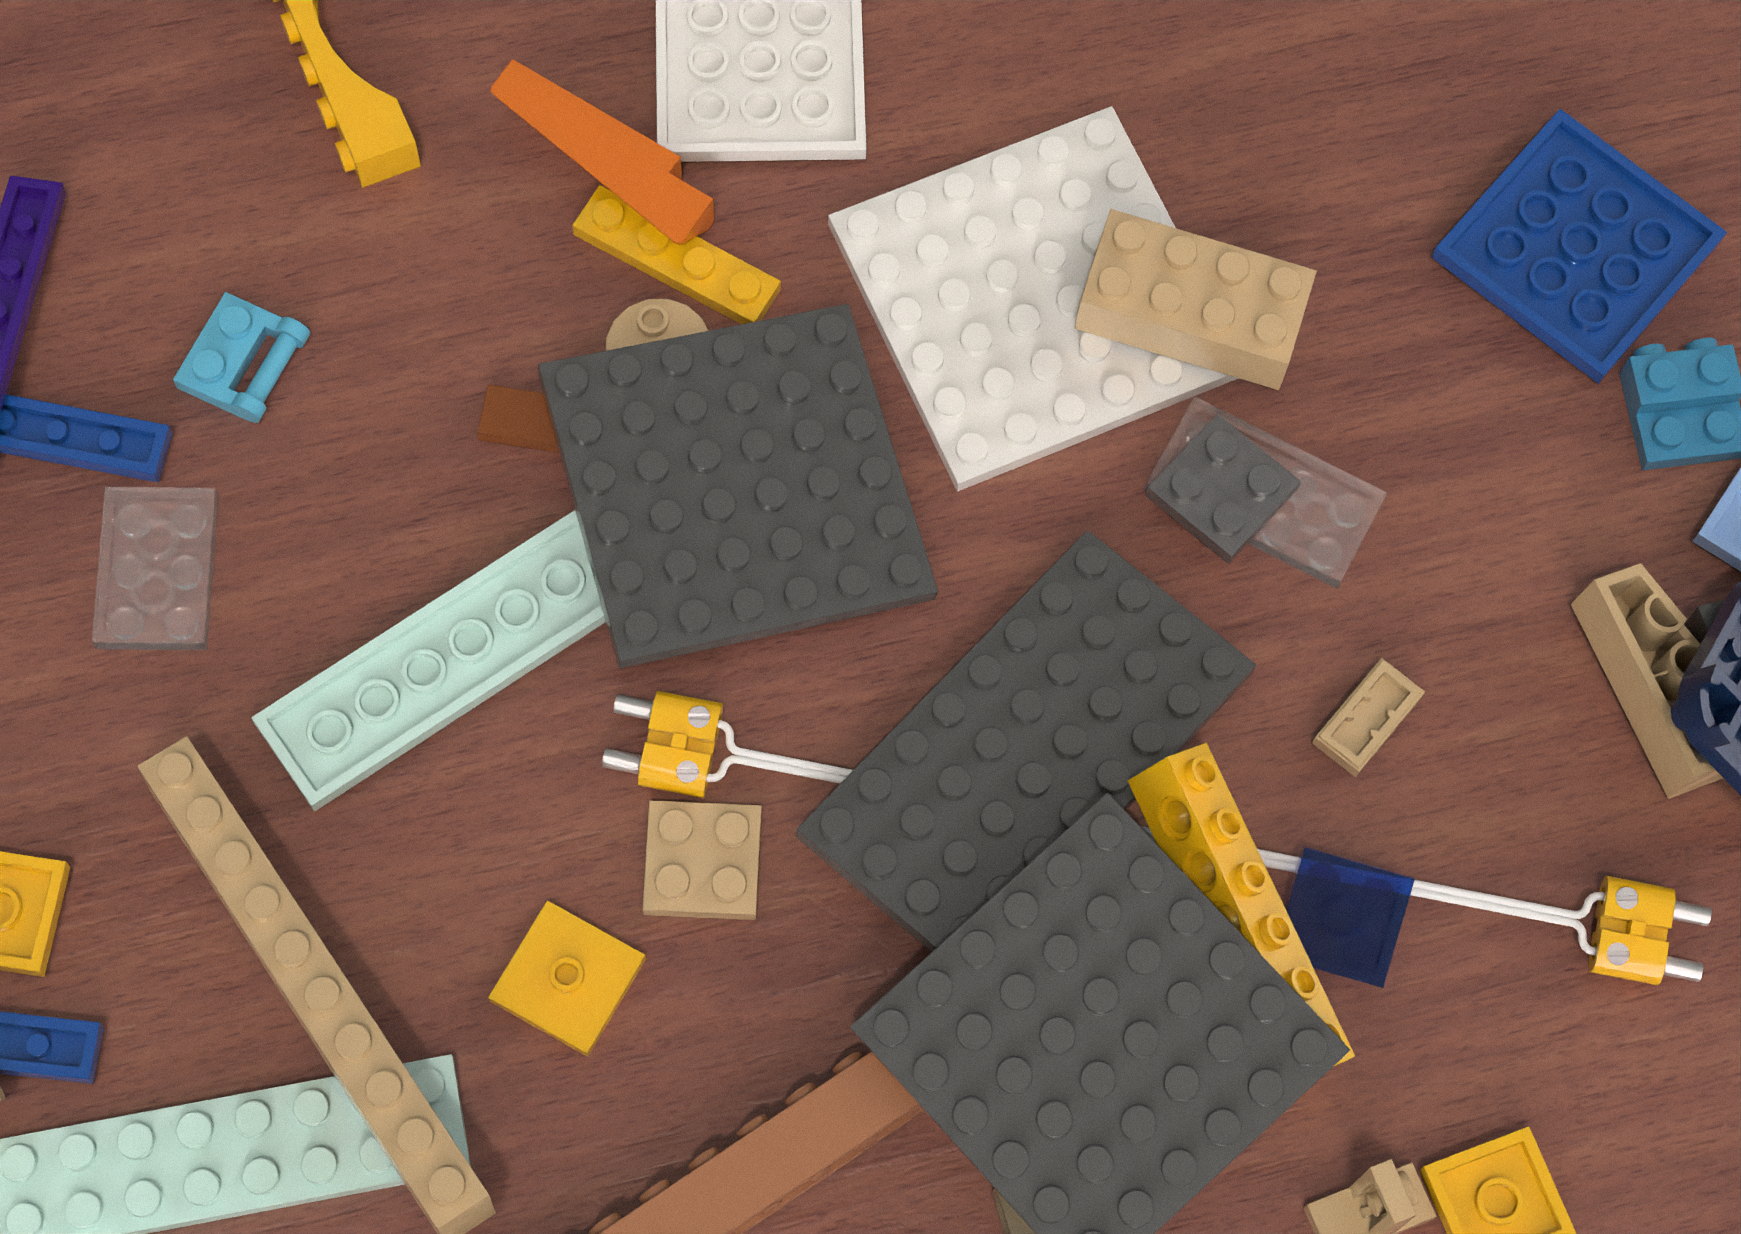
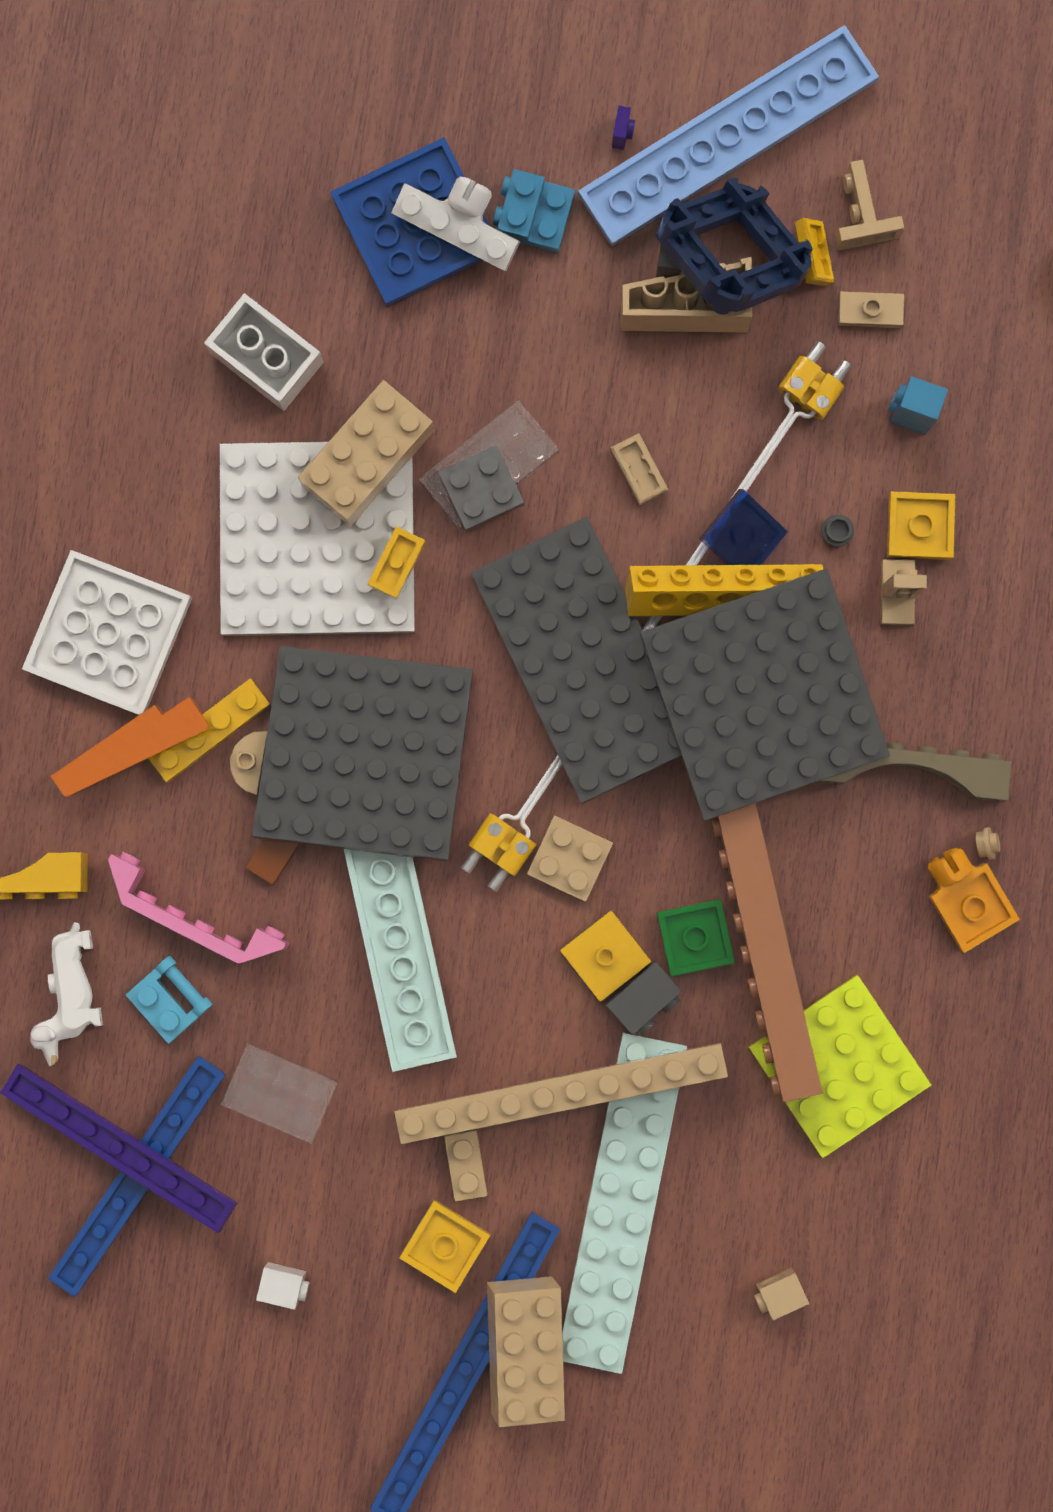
camera: 60 degrees left, 15 degrees up
(142, 894) = (465, 1165): none -> tan plate
(197, 217) = (72, 992): none -> white animal
(399, 227) = (127, 877): none -> bright pink slope
(520, 1063) = (644, 998): none -> dark grey brick
(655, 1108) = (695, 937): none -> green plate
(1049, 408) = (396, 562): none -> yellow plate
(1276, 108) = (264, 352): none -> white brick
(1423, 1070) = (837, 530): none -> dark grey plate
(1613, 295) = (458, 220): none -> white plate
(1690, 1105) = (917, 405): none -> dark azure brick

